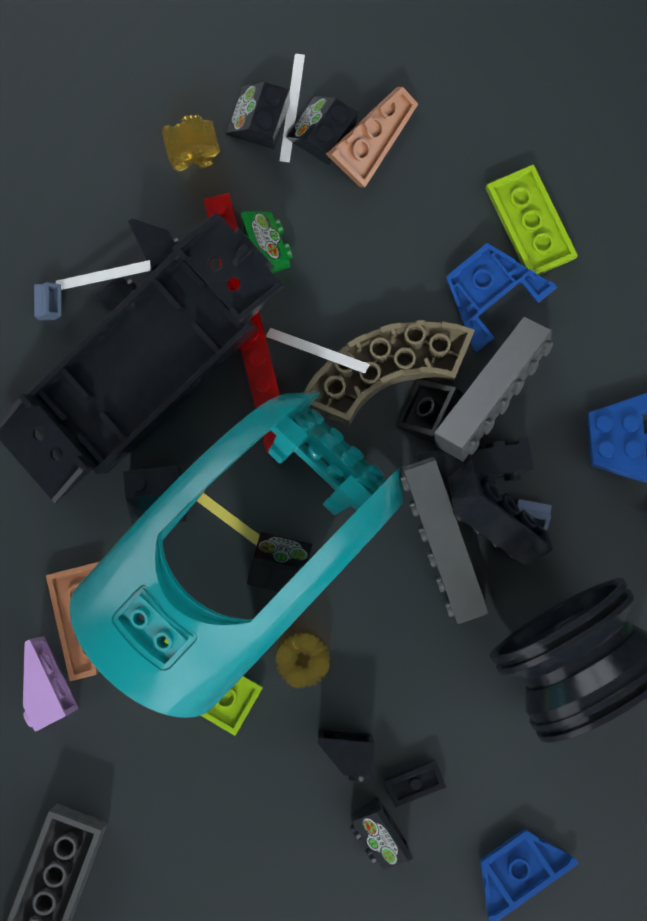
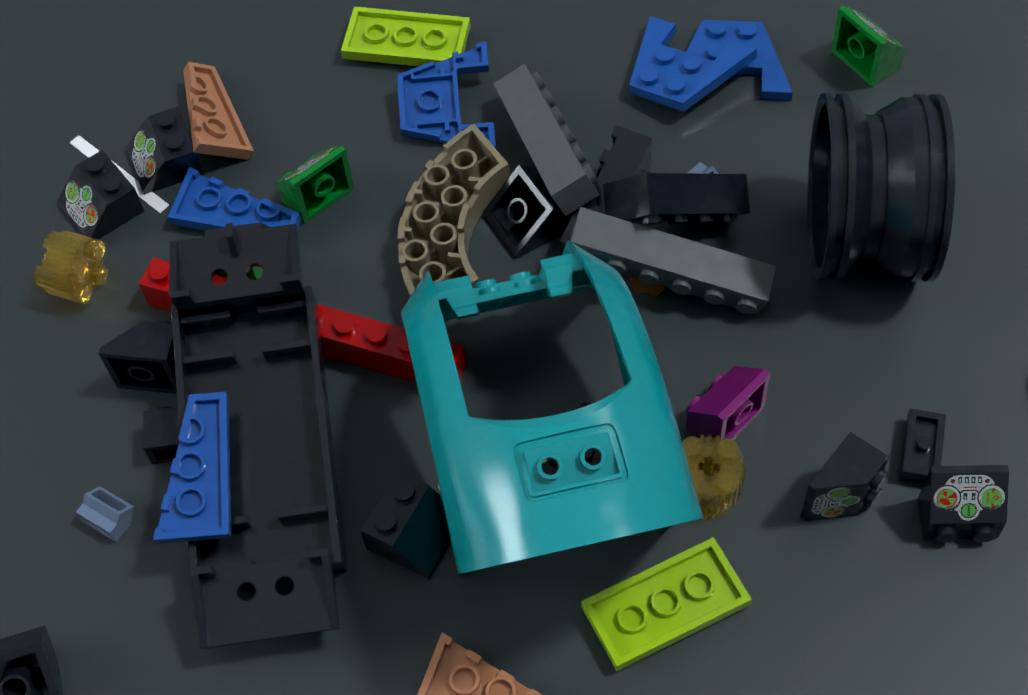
camera: 50 degrees left, 25 degrees down
(79, 357) = (199, 484): none -> blue wing
(104, 275) = (132, 422): white sticker -> none
(305, 203) = (211, 204): none -> blue wing
(318, 350) = (387, 267): white sticker -> none
(361, 641) = (729, 403): none -> magenta slope
(362, 251) = (317, 183): none -> green slope

